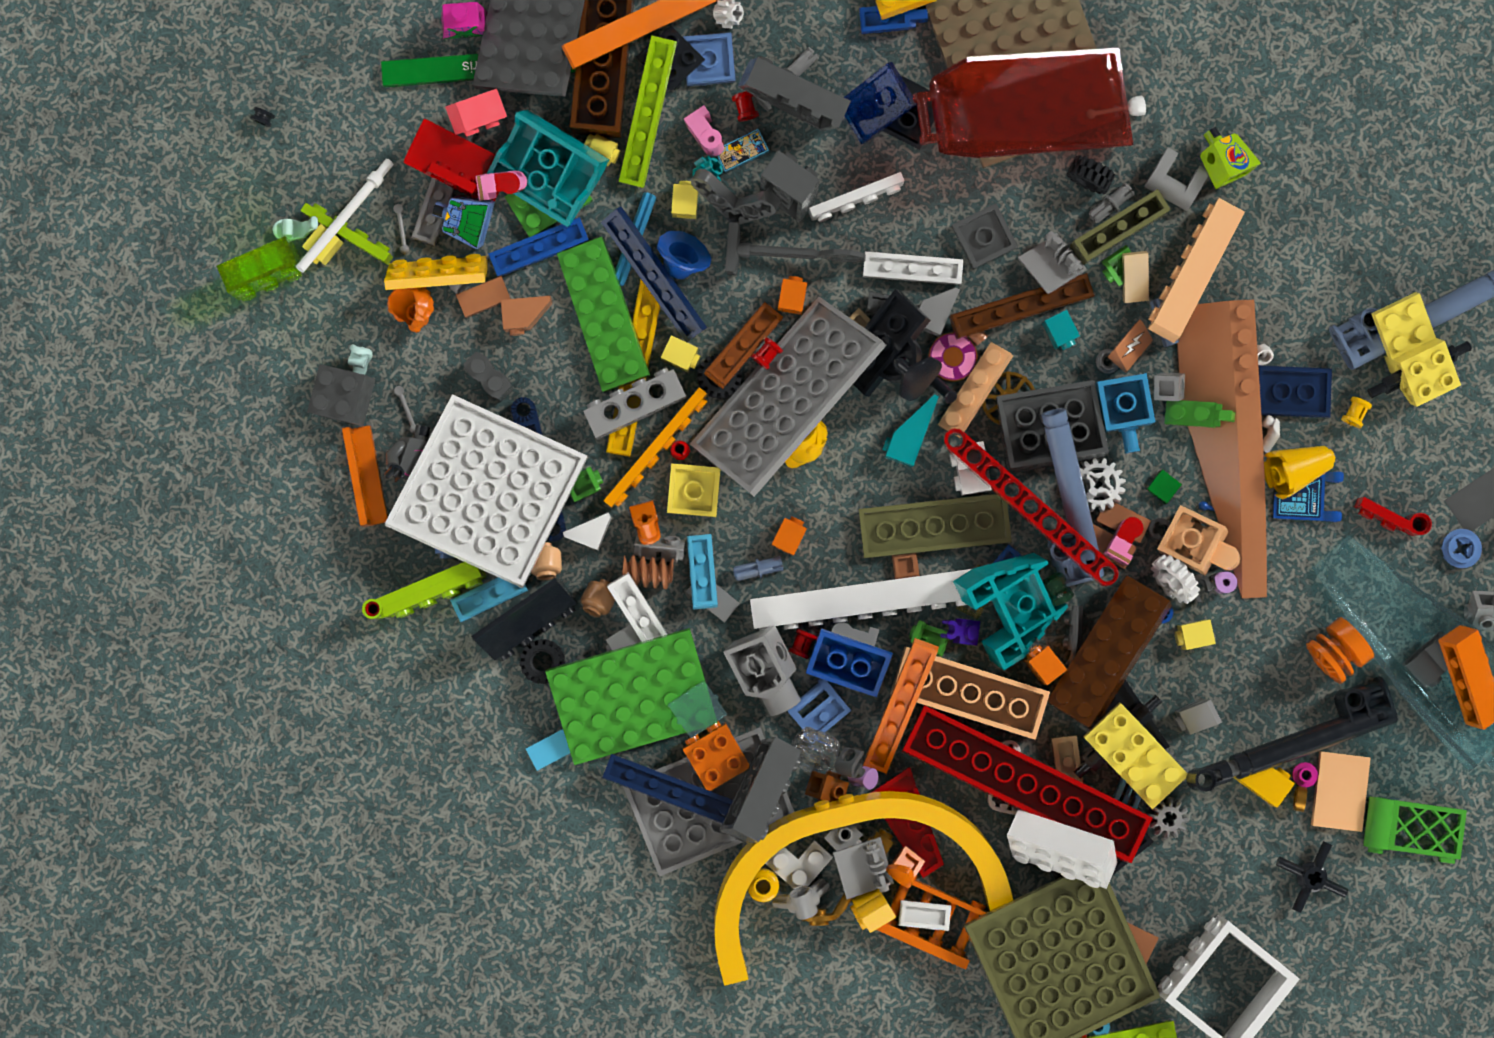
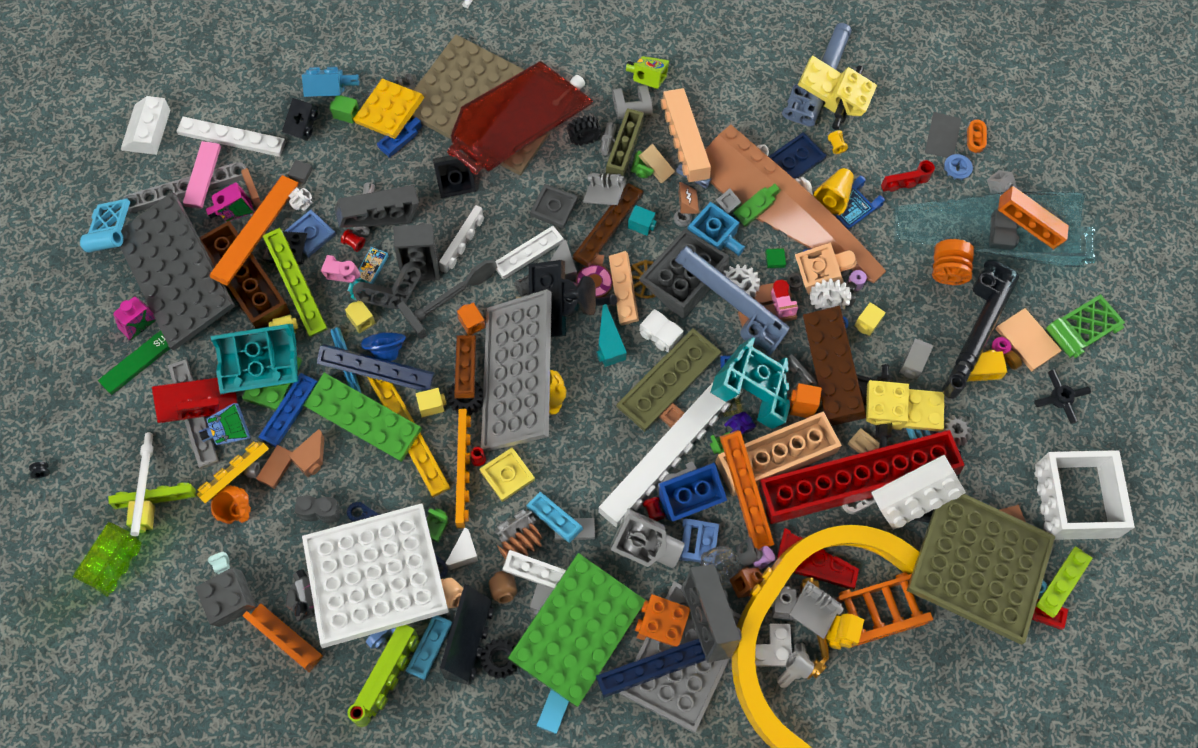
camera: 45 degrees left, 20 degrees down
(294, 229) = (118, 518): light aqua piece -> none
(398, 209) = (177, 458): light grey hinge -> none
(399, 391) = (265, 567): light grey hinge -> none
(475, 112) = (184, 360): coral brick -> none
(509, 182) = (232, 387): leg -> none
(626, 416) = (417, 478): light grey brick -> none
(646, 522) = (492, 515): orange piece -> none
(697, 709) = (626, 599): clear light blue piece -> none
(758, 568) = (587, 488): sand blue axle -> none
(764, 886) = (767, 677): yellow head -> none
(766, 353) = (483, 359): red bush -> none
(789, 535) = (589, 453): orange brick -> none
(878, 103) = (431, 178): clear blue tile -> none
(905, 867) = (839, 587): orange tile -> none
(924, 915) = (878, 608): white tile -> none
(1035, 519) = (723, 311): red beam -> none
(1057, 589) = (773, 351): clear green wheel -> none

